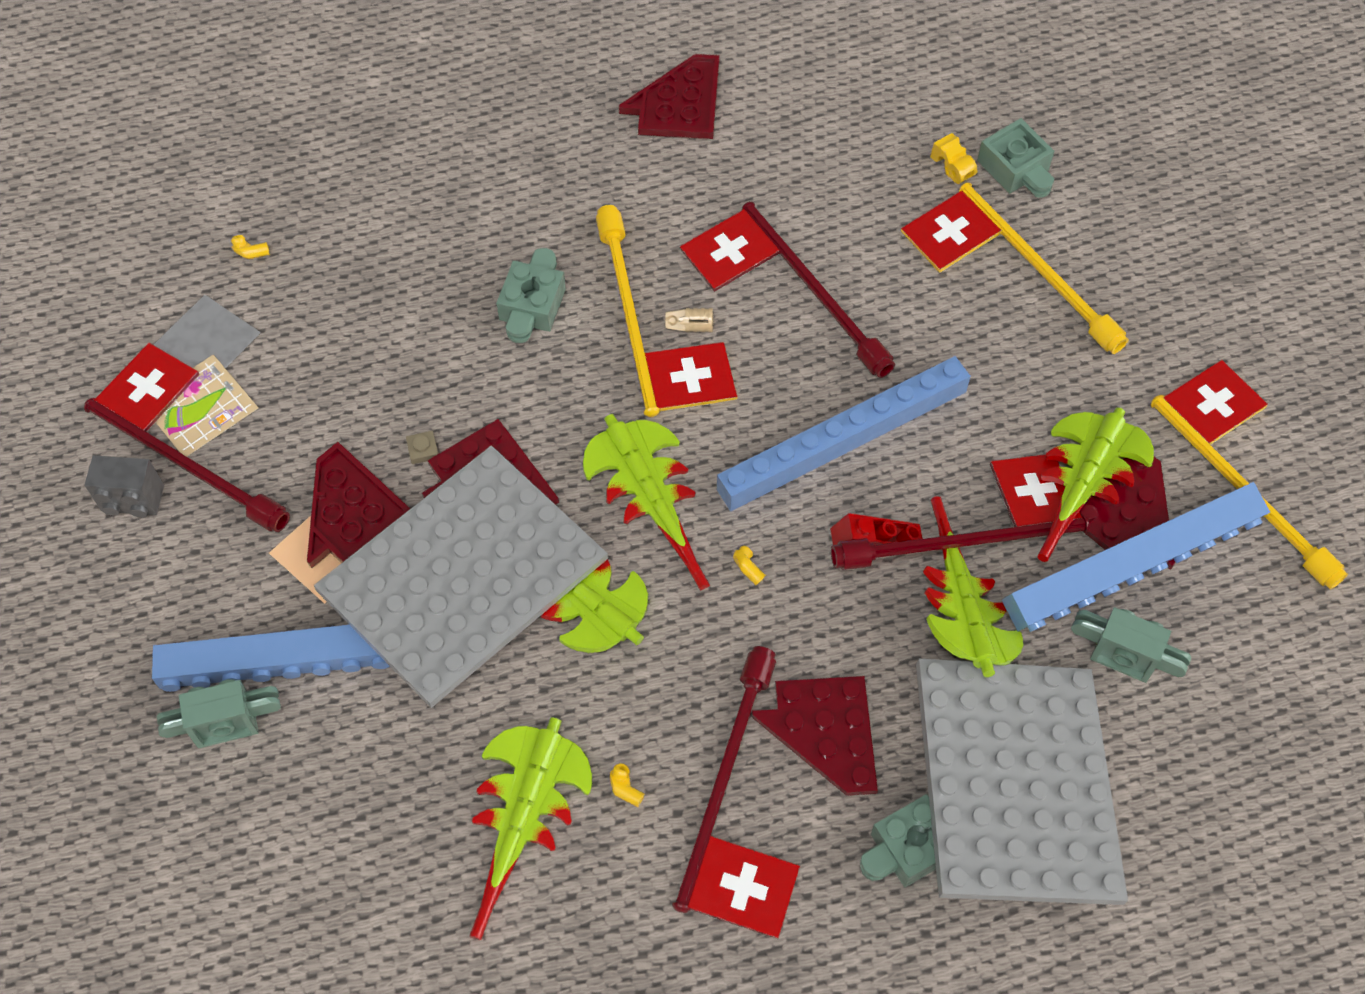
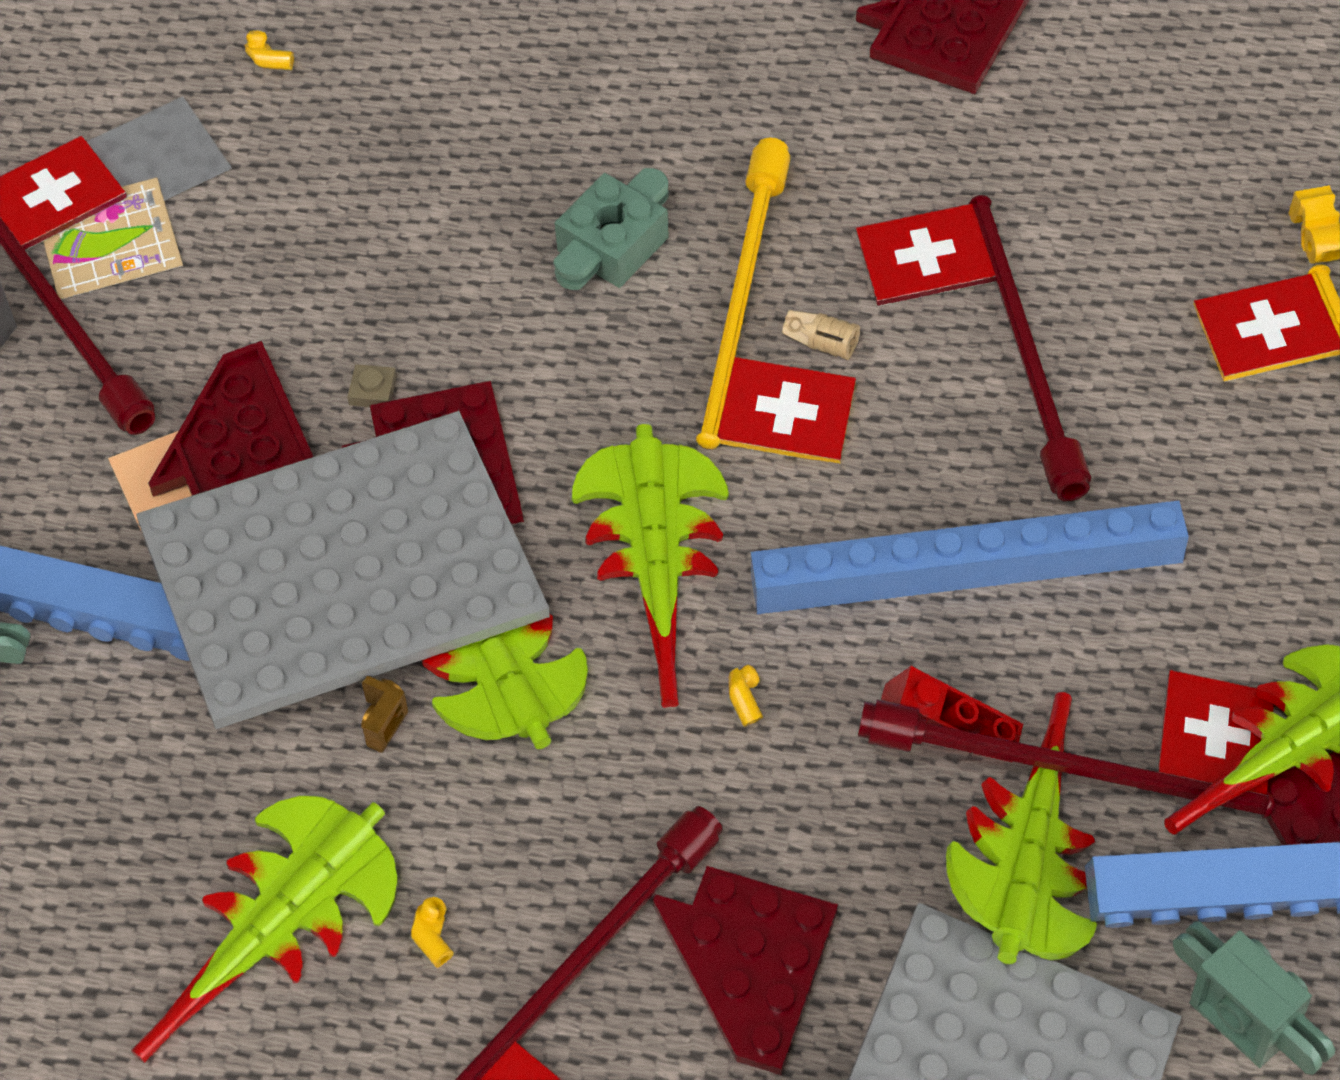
camera: 25 degrees right, 5 degrees down
(532, 660) = (384, 714): none -> pearl gold bracket

